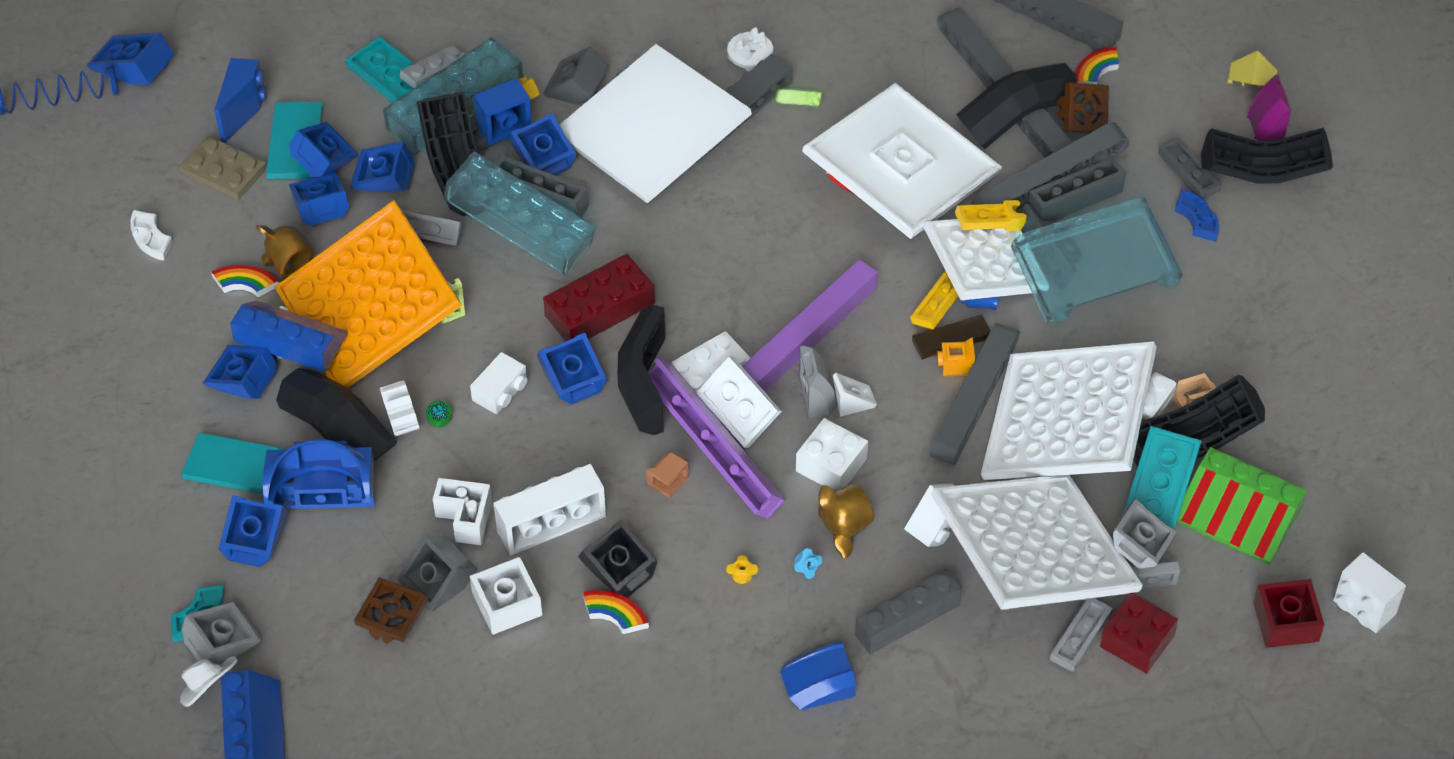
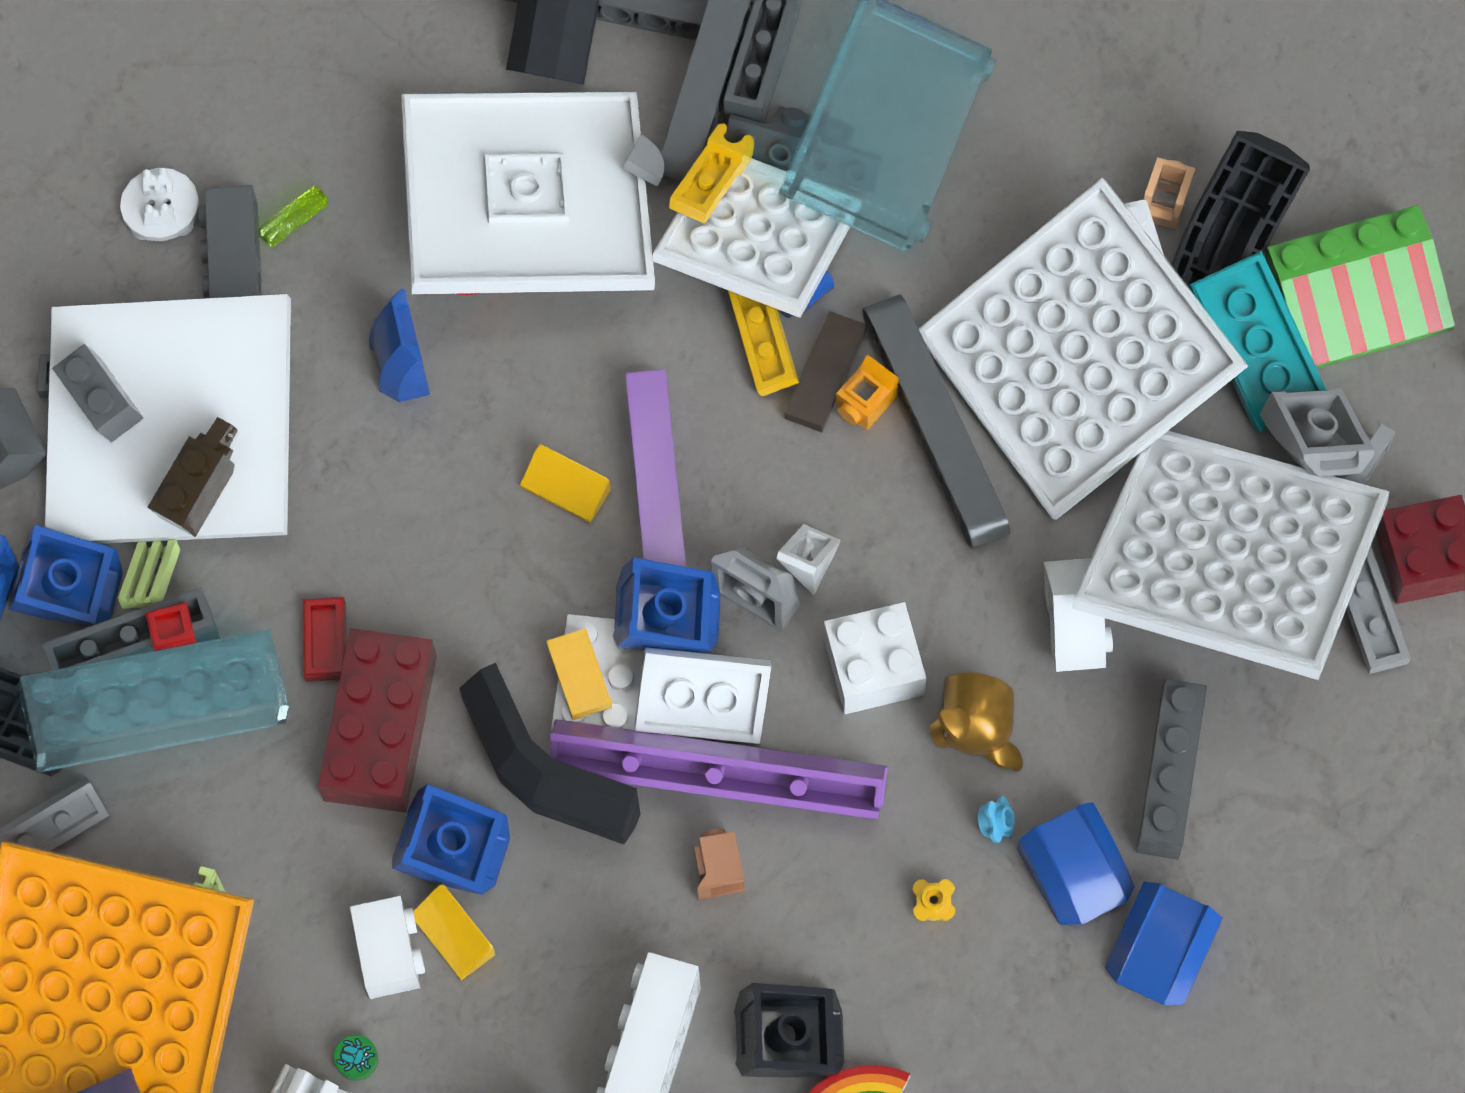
camera: 45 degrees left, 15 degrees up
(533, 404) = (453, 932): none -> yellow slope
(556, 189) = (171, 626): none -> red tile
(577, 171) = (142, 575): none -> yellowish green tile
(622, 247) = (324, 638): none -> red tile
(632, 85) = (97, 393): none -> dark grey brick
(632, 146) = (196, 478): none -> dark brown hinge
(699, 352) = (579, 674): none -> yellow tile
(763, 353) = (666, 607): none -> blue slope
(778, 174) = (398, 351): none -> blue slope
(786, 284) = (565, 483): none -> yellow slope
(821, 609) = (1076, 865): none -> blue slope
(968, 189) = (645, 161): none -> light grey tile

